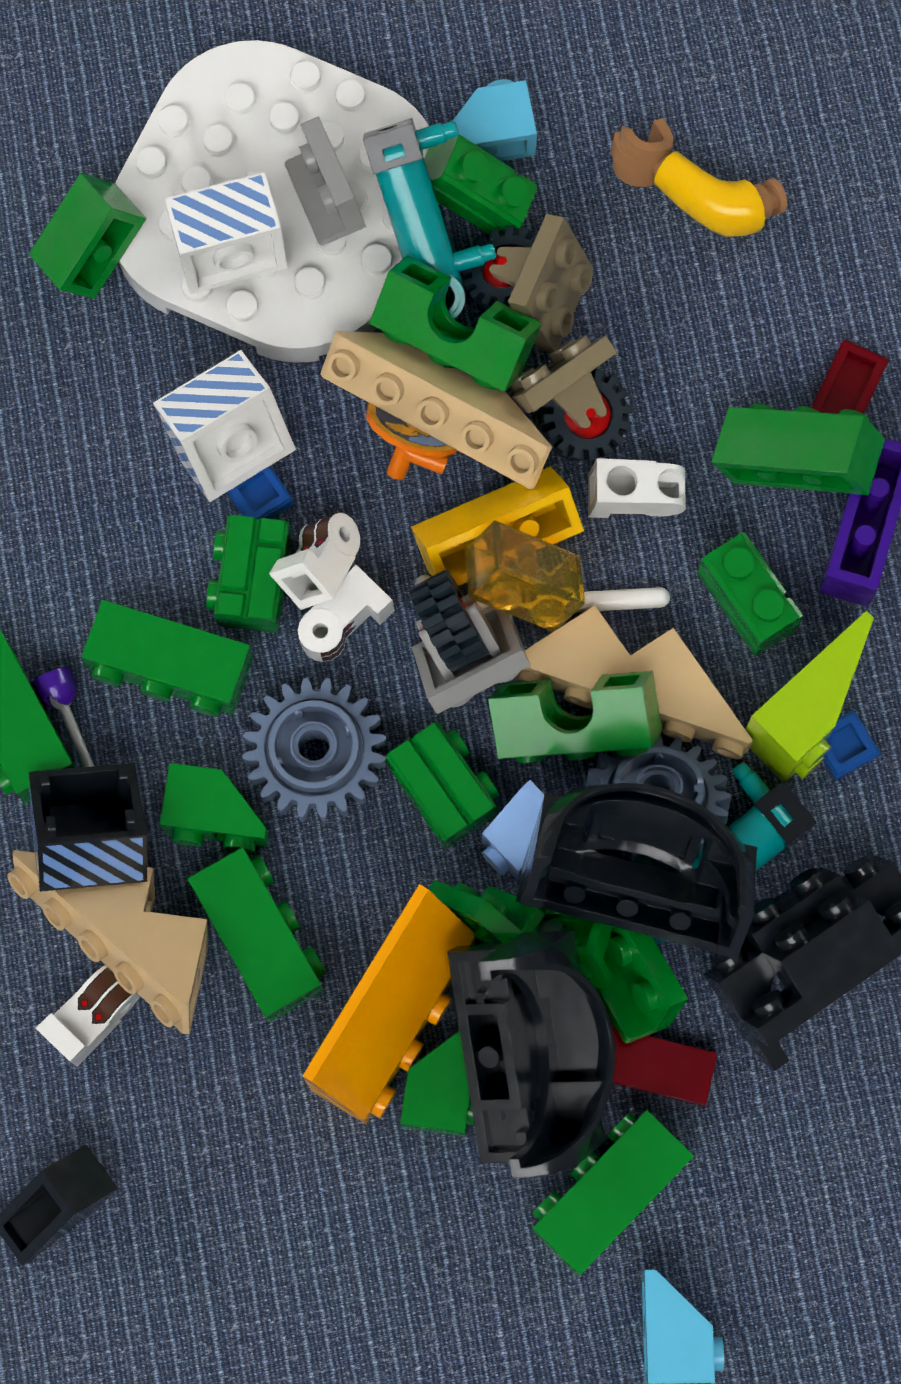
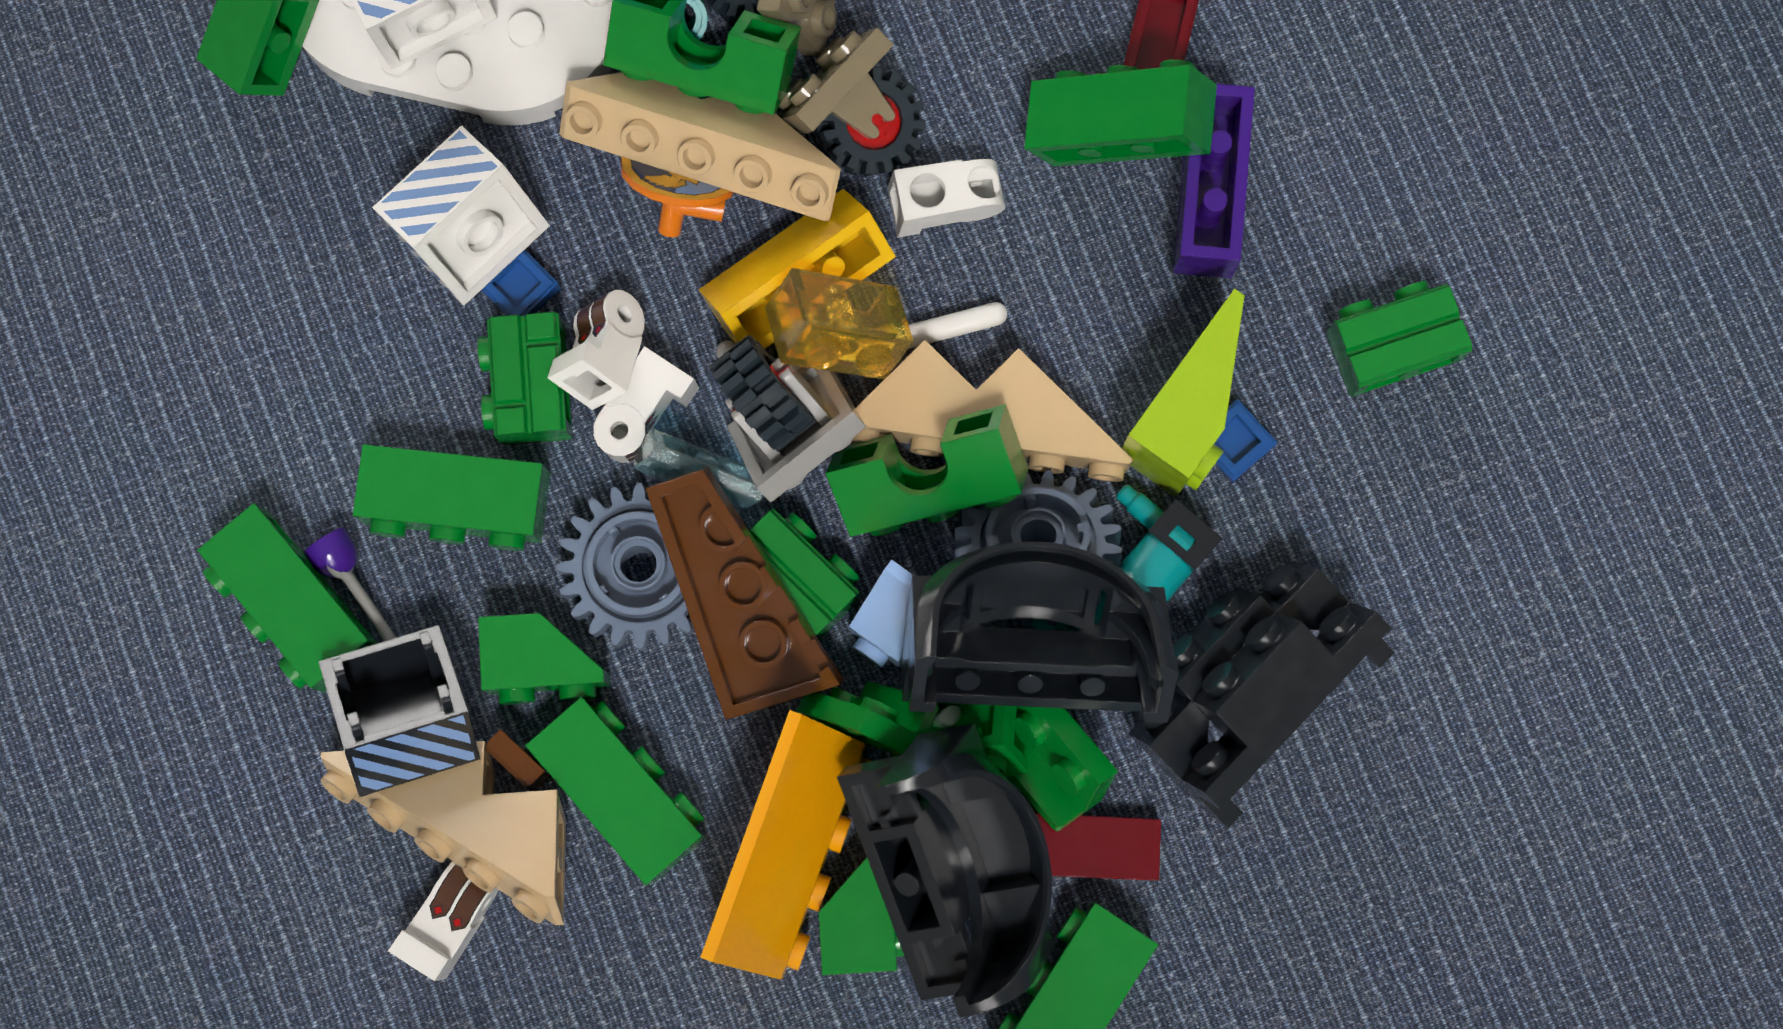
camera: 10 degrees left, 5 degrees up
(176, 891) = (517, 761): none -> reddish brown tile
(379, 678) = (671, 457): none -> clear light blue slope
(392, 800) = (739, 608): none -> reddish brown wing
(749, 594) = (1096, 291): green brick -> none

